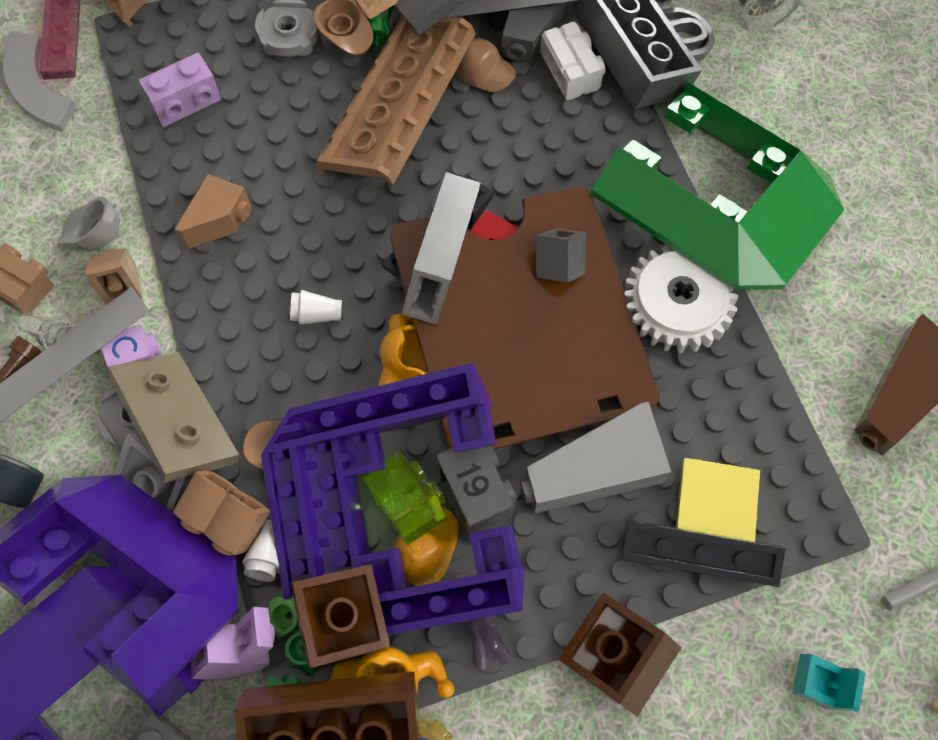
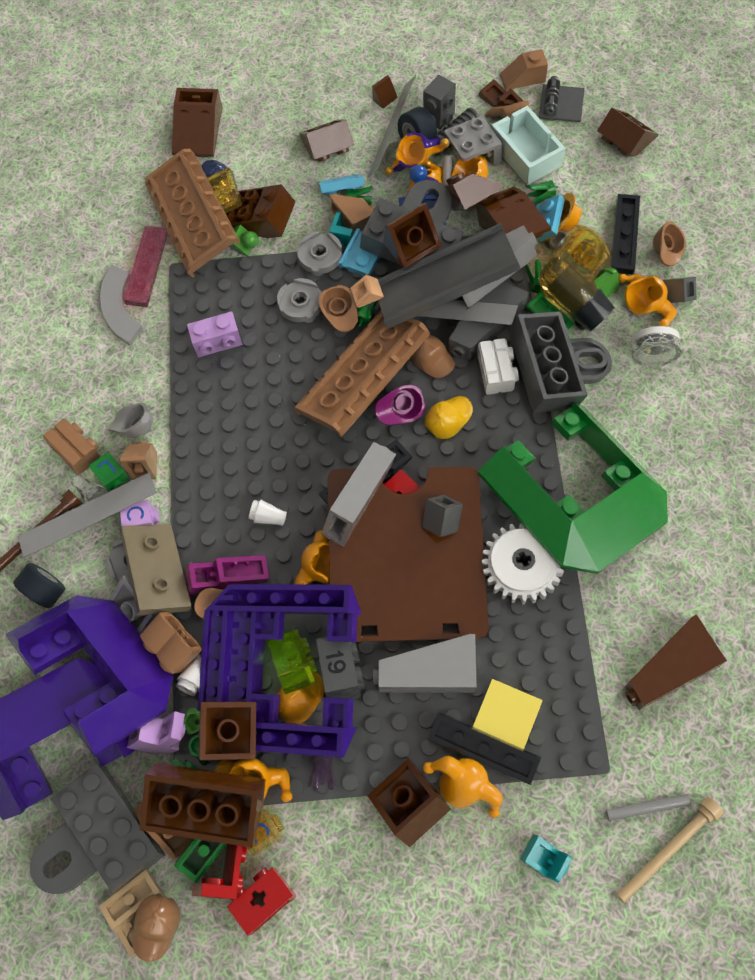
camera: 20 degrees right, 0 degrees up
(71, 300) = (109, 472): none -> green brick
(213, 212) = (216, 430): medium nougat slope -> none
(273, 399) = (225, 572): none -> magenta slope
(461, 130) = (400, 405): none -> magenta piece
(525, 136) = (448, 417): none -> yellow piece
(690, 607) = (465, 783): none -> light orange piece

